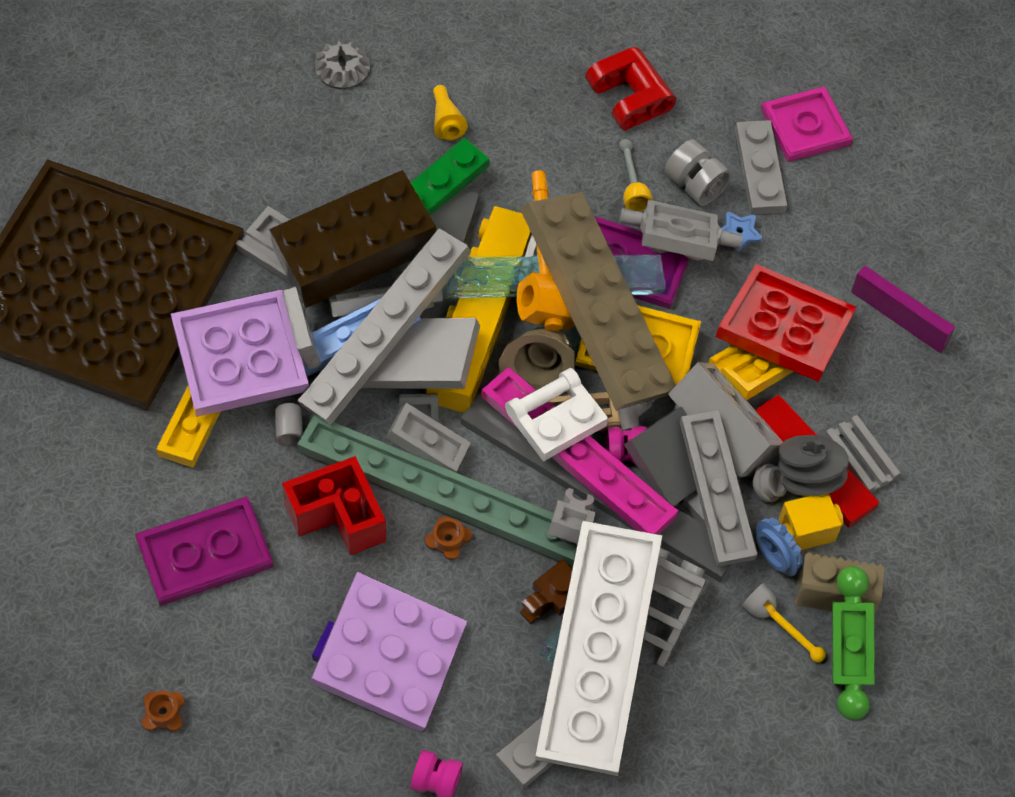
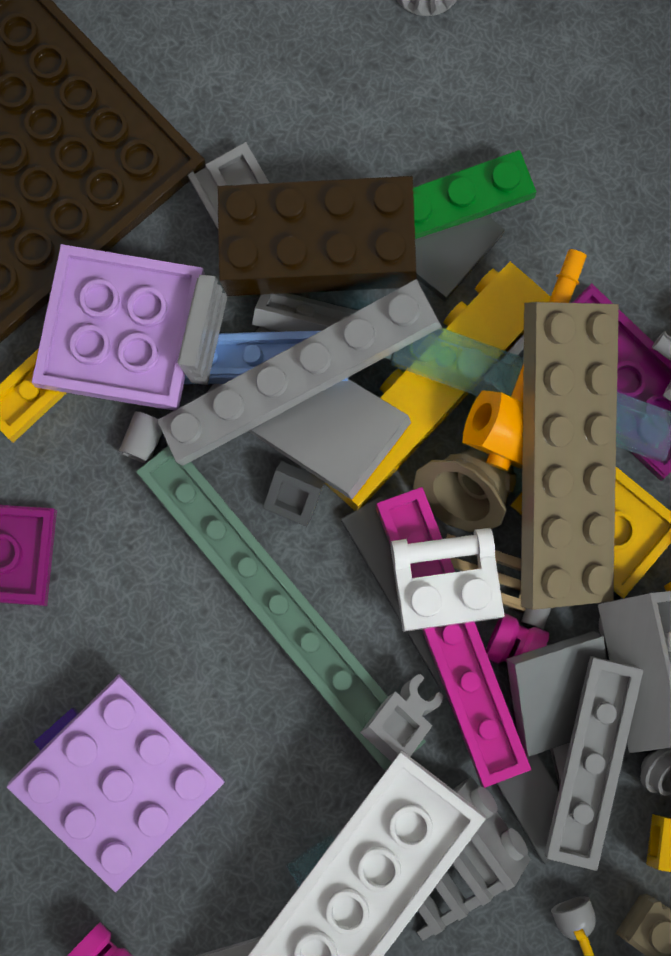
camera: 25 degrees right, 20 degrees up
(340, 497) = (153, 567): red brick -> none
(427, 438) = (286, 535): light grey plate -> none
(448, 121) = (516, 112): yellow cone -> none
(453, 528) = (269, 666): dark orange plate -> none
(550, 592) = (344, 788): reddish brown plate -> none
(779, 546) = (630, 868): medium blue gear -> none

